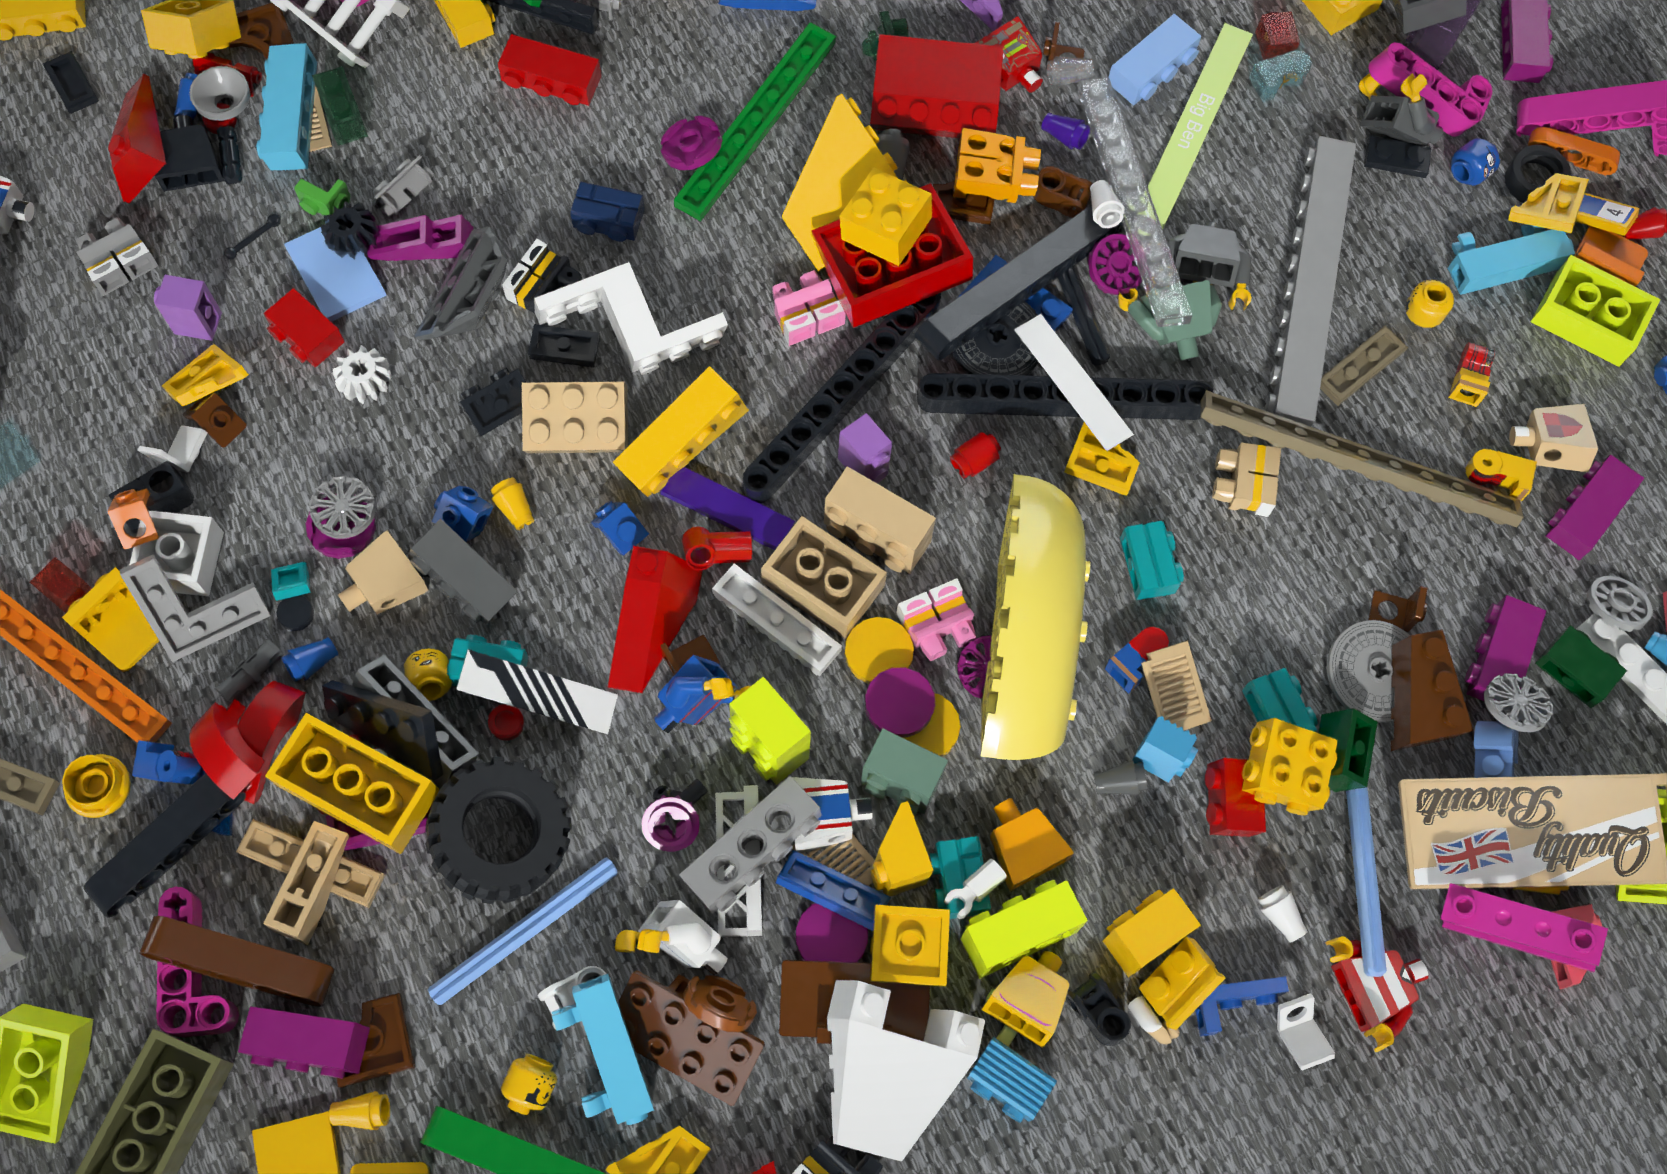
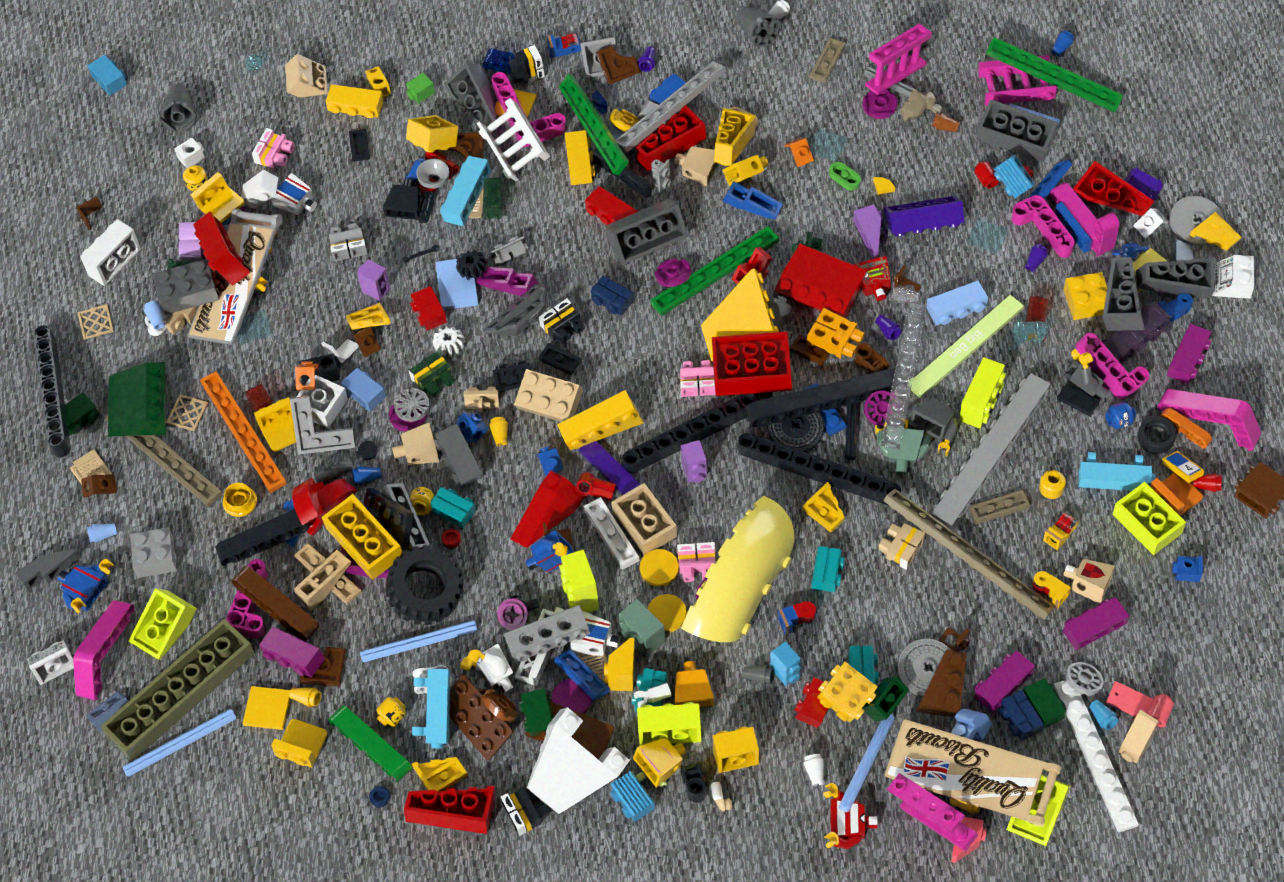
camera: 30 degrees right, 10 degrees down
(136, 141) = (380, 186): red wedge -> none
(163, 764) = (276, 500): blue leg -> none
(246, 506) = (364, 389): none -> medium blue brick
(290, 581) = (371, 433): teal tile -> none
(316, 200) = (461, 244): bright green bracket -> none
(355, 440) = (432, 373): none -> clear green hips
(460, 457) = (481, 399): none -> tan hips
(537, 691) = (472, 527): white sticker -> none
(622, 86) = (646, 231): none -> dark grey brick
(629, 318) = (597, 354): white bracket -> none
(792, 993) = (537, 711): none -> dark green brick
(816, 102) = (759, 261): none -> red brick
(878, 521) = (684, 500): tan brick -> none
(886, 216) = (751, 340): yellow brick -> none
(900, 701) = (657, 594): magenta tile -> none
(910, 945) = (607, 711): yellow bracket -> none
(976, 455) = (756, 484): red brick -> none
(1074, 382) = (824, 462): white sticker -> none
(1106, 206) = (884, 374): white cone -> none
(1176, 686) = (809, 637): tan window -> none
(1181, 983) = (740, 779): yellow plate -> none
(1231, 997) = (766, 797): blue bracket -> none
(1264, 189) = (983, 393): none -> neon yellow brick
(1302, 1033) = (796, 830): white bracket -> none
(1518, 703) = (990, 704): light grey wheel -> none
(1553, 205) = (1150, 452): yellow wing -> none
(1571, 702) = (1021, 715): none -> dark blue brick

